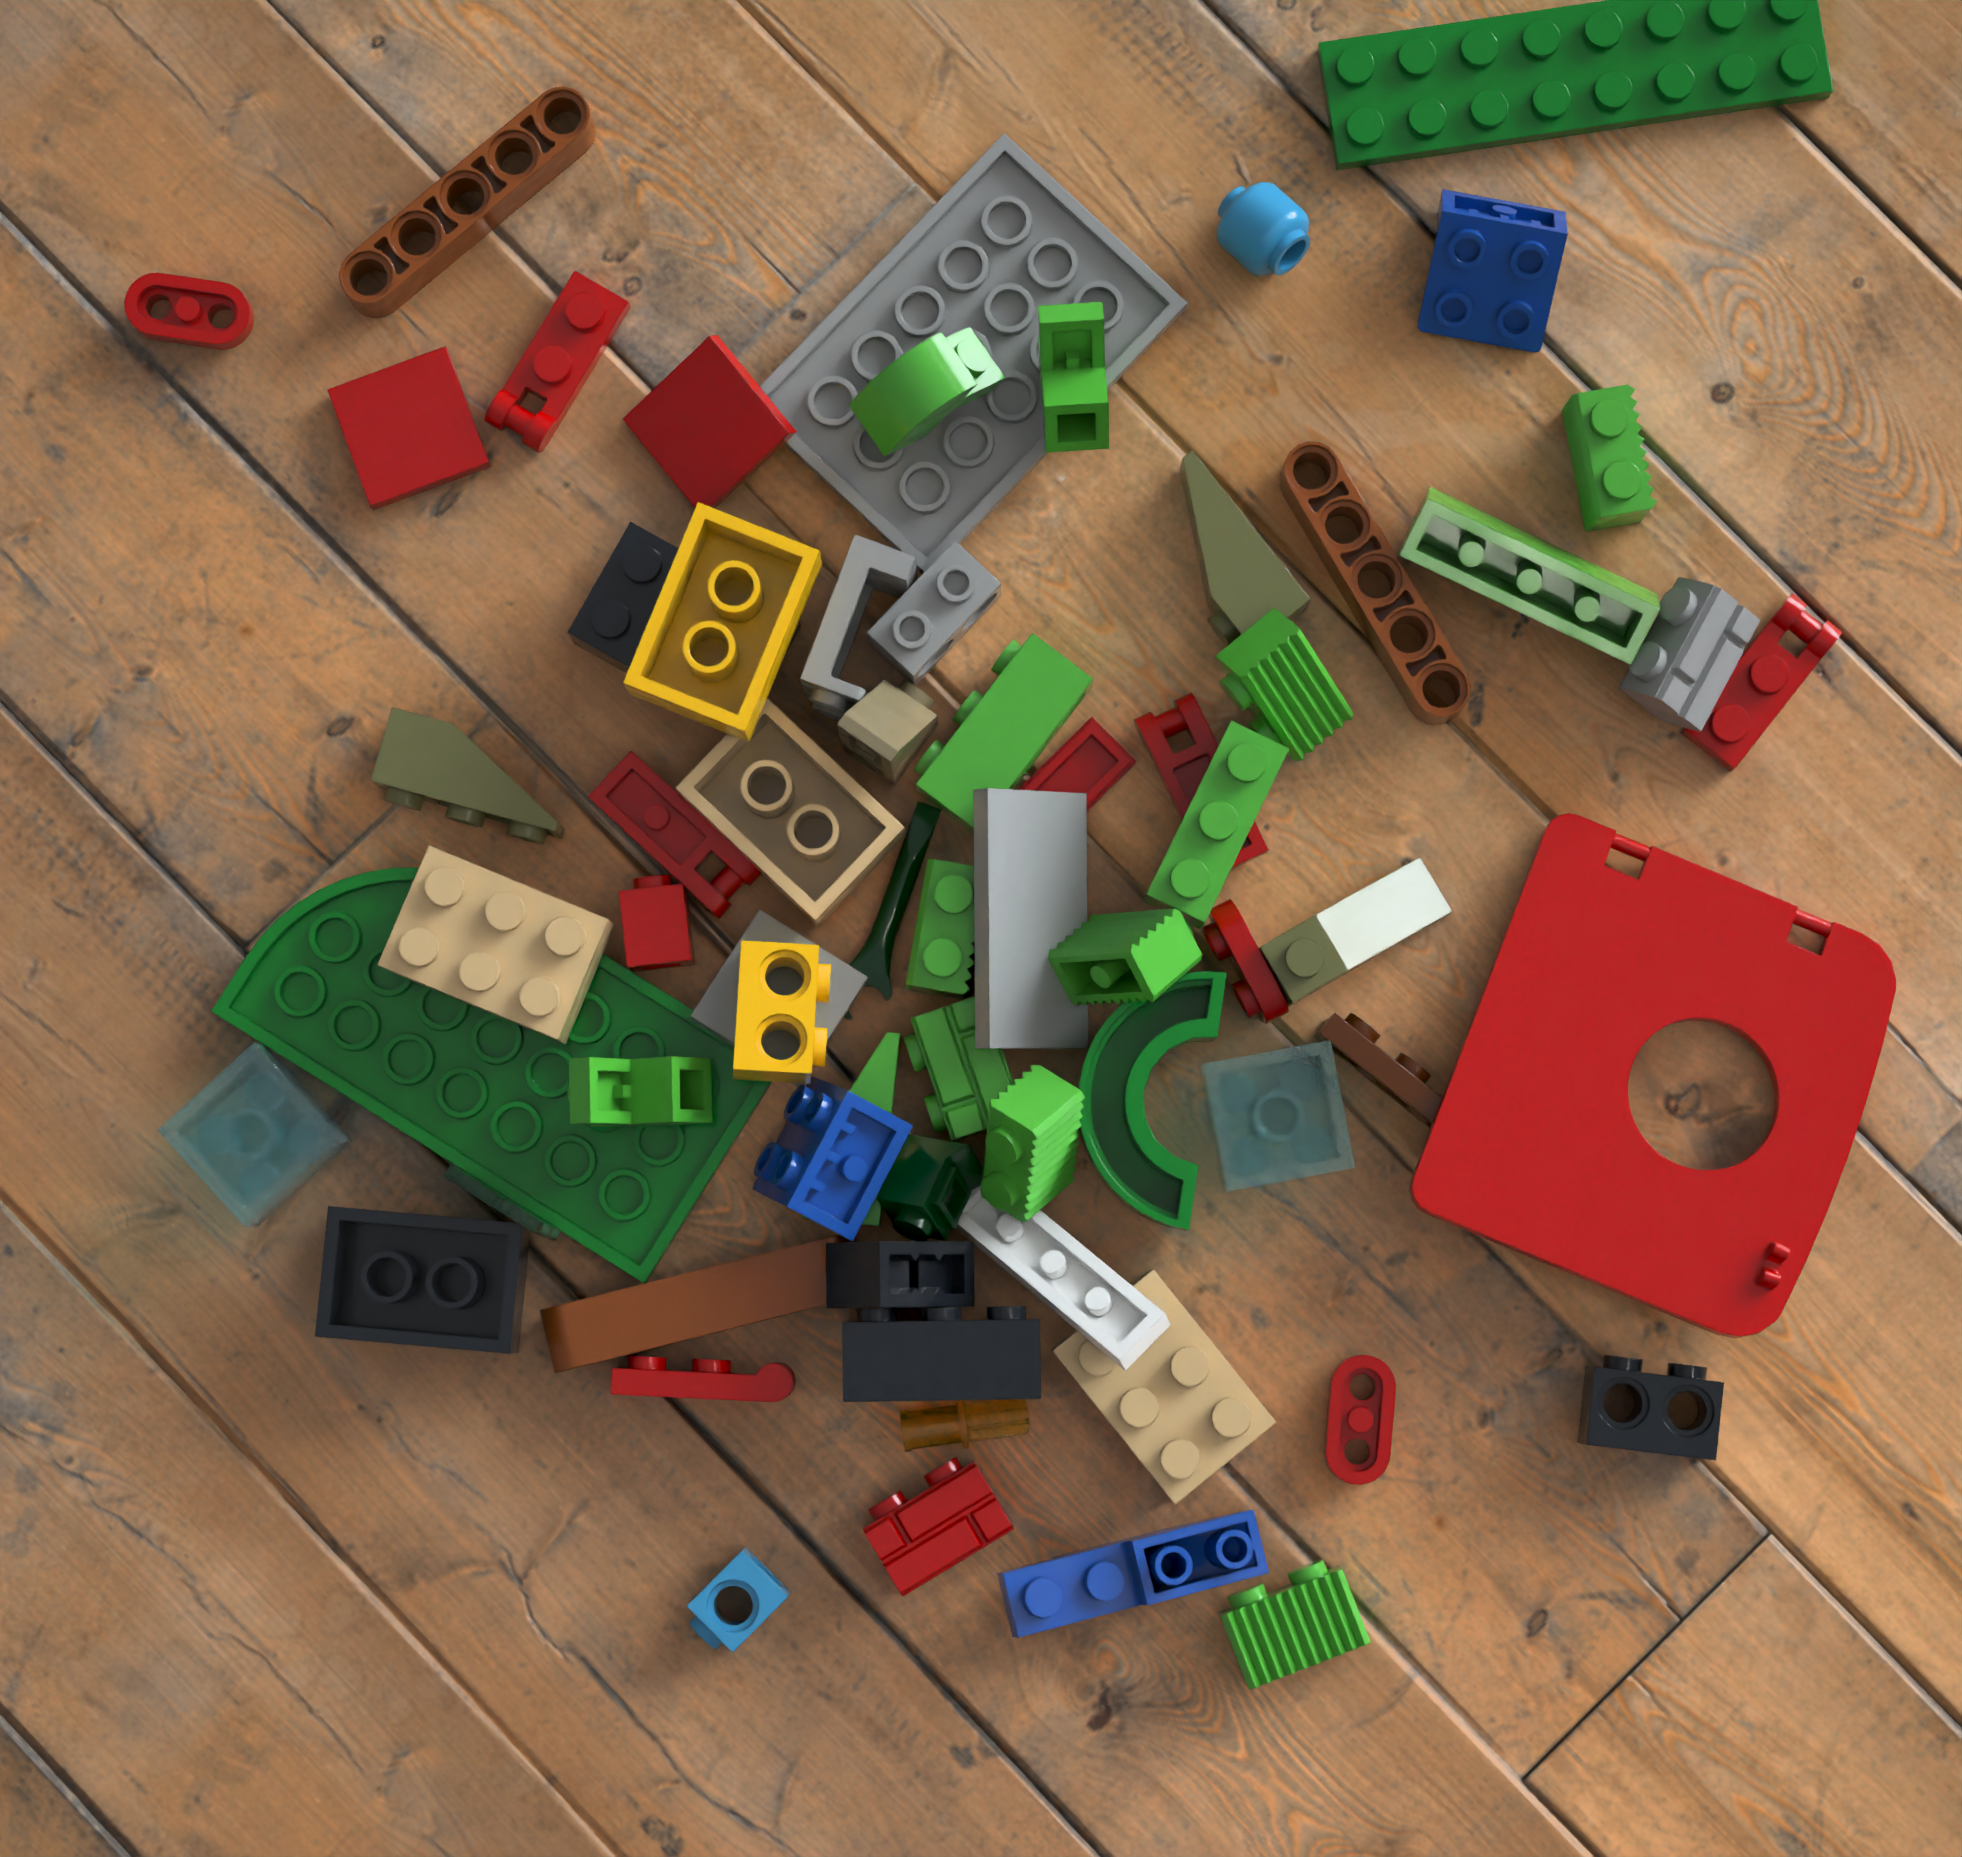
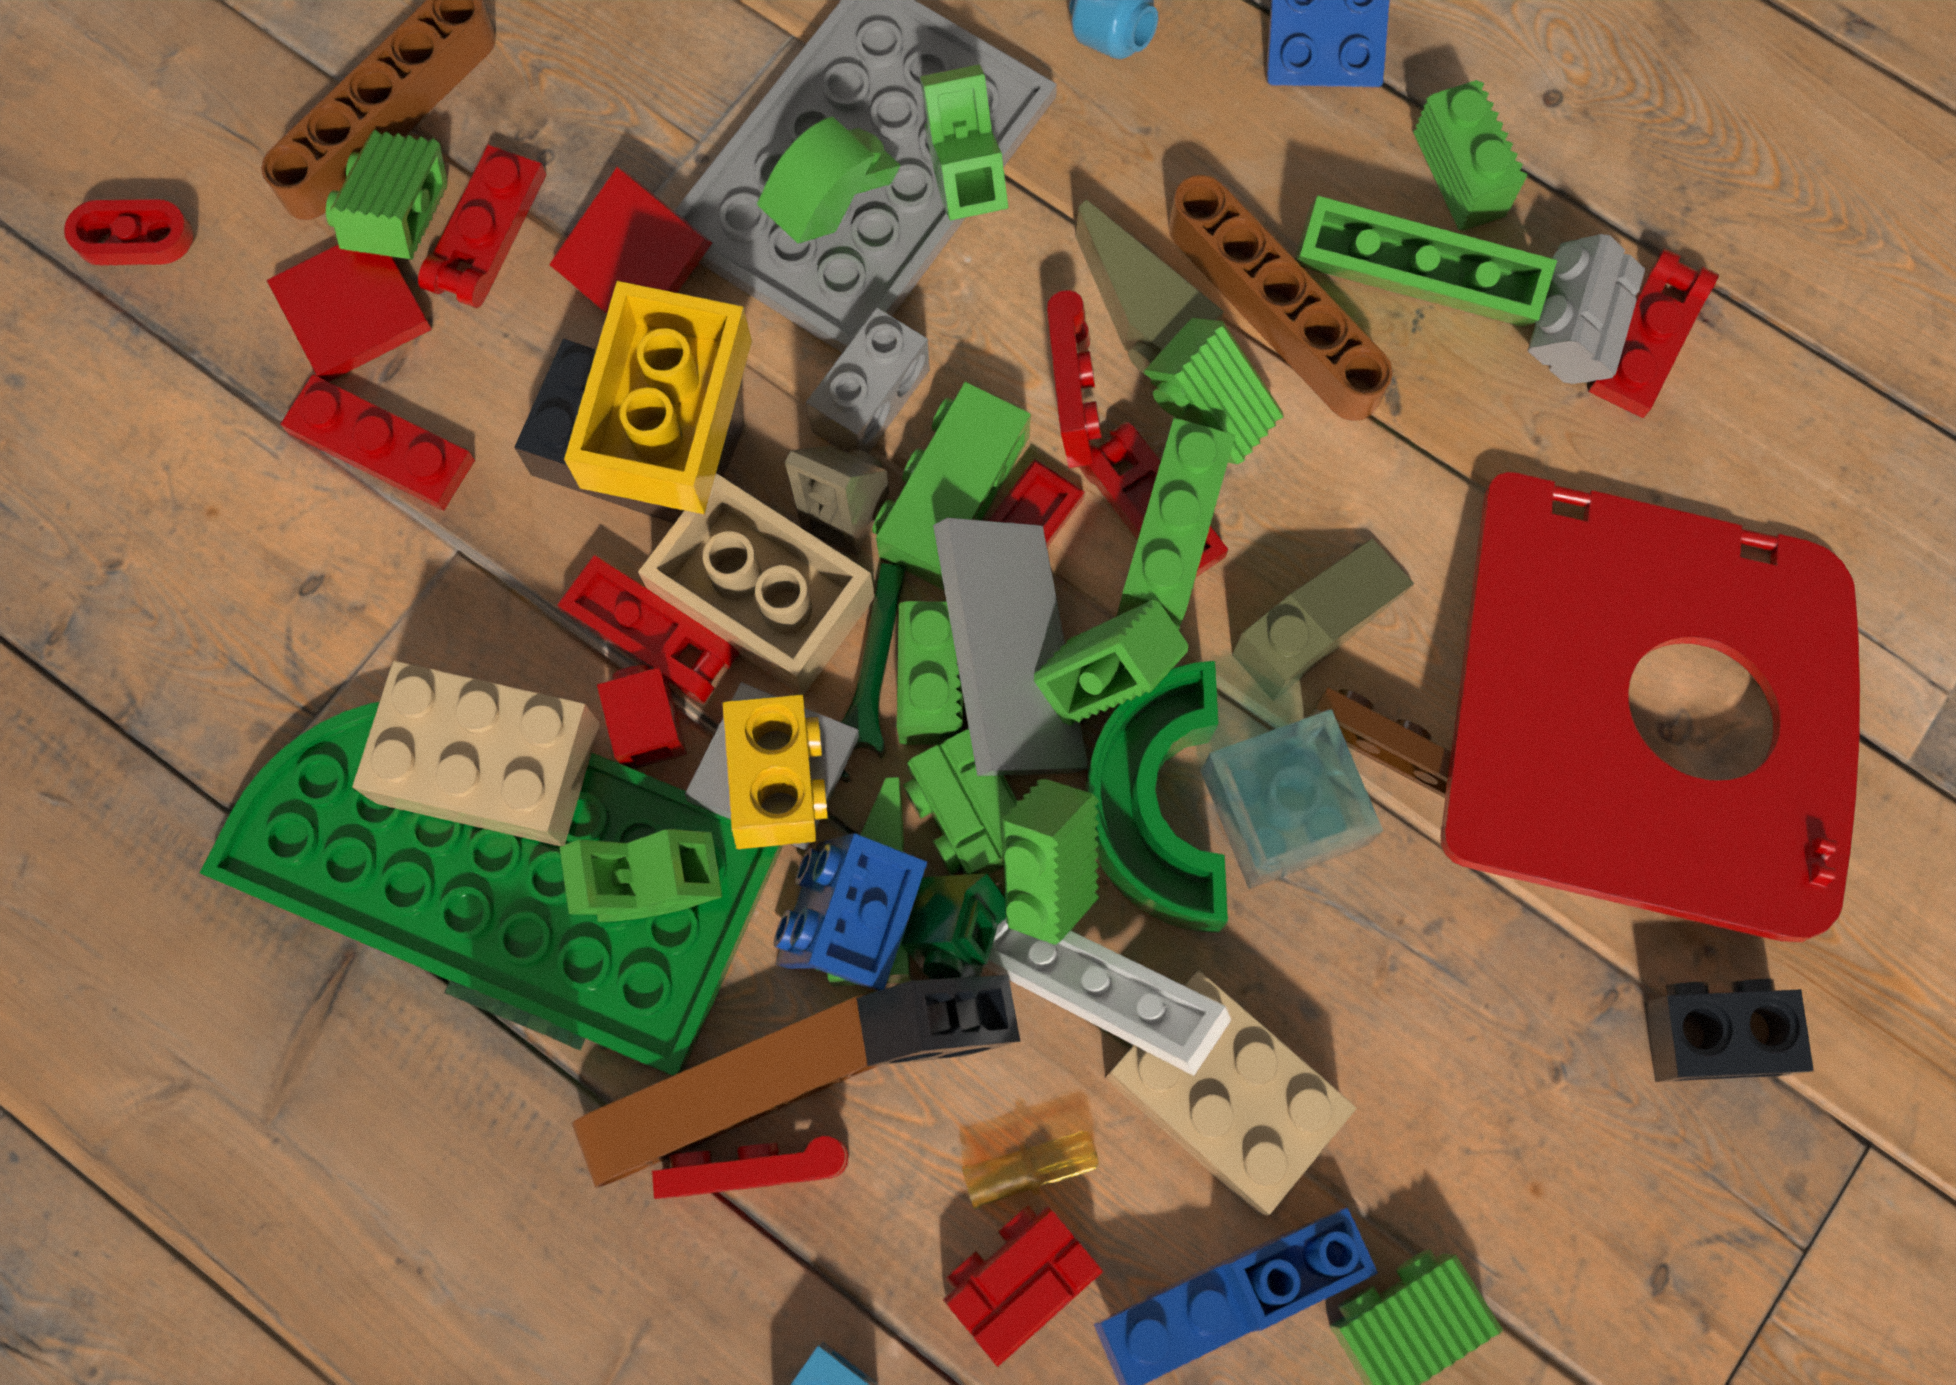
camera: 10 degrees left, 10 degrees down
(255, 1135) = (251, 990): clear light blue brick -> none
(422, 1280) = (441, 1110): black brick -> none
(423, 586) = (378, 442): none -> red plate
(441, 765) = (409, 600): olive slope -> none
(466, 321) = (388, 195): none -> bright green brick
(864, 569) = (799, 351): light grey panel -> none
(941, 1356) = (997, 1096): black brick -> none
(1143, 641) = (1073, 374): none -> red plate
(1232, 939) = (1242, 676): red plate -> none
(1360, 1419) = (1439, 1094): red plate -> none

